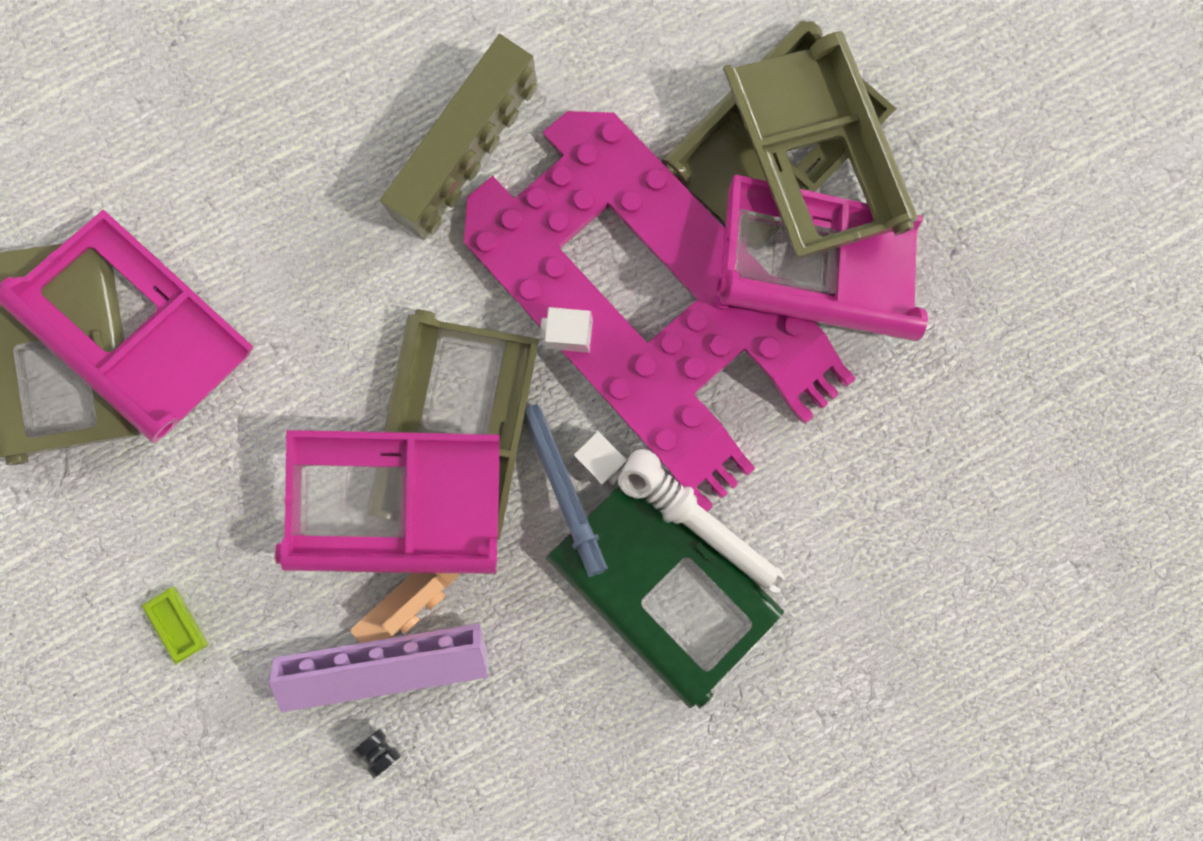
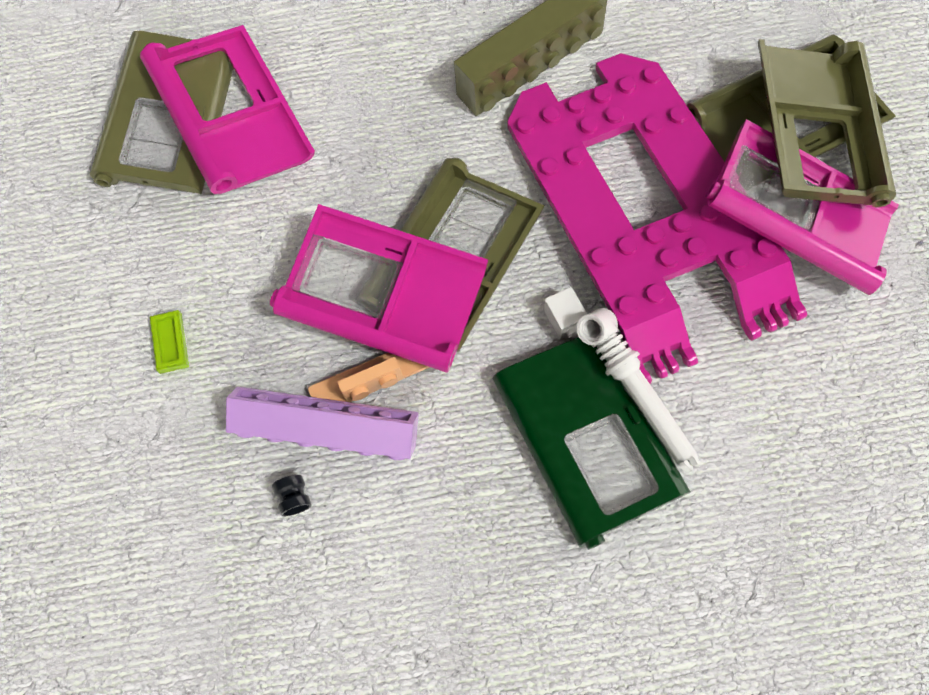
camera: 25 degrees right, 15 degrees down
(565, 492) = (532, 366): sand blue axle -> none
(567, 329) = (571, 198): white brick -> none

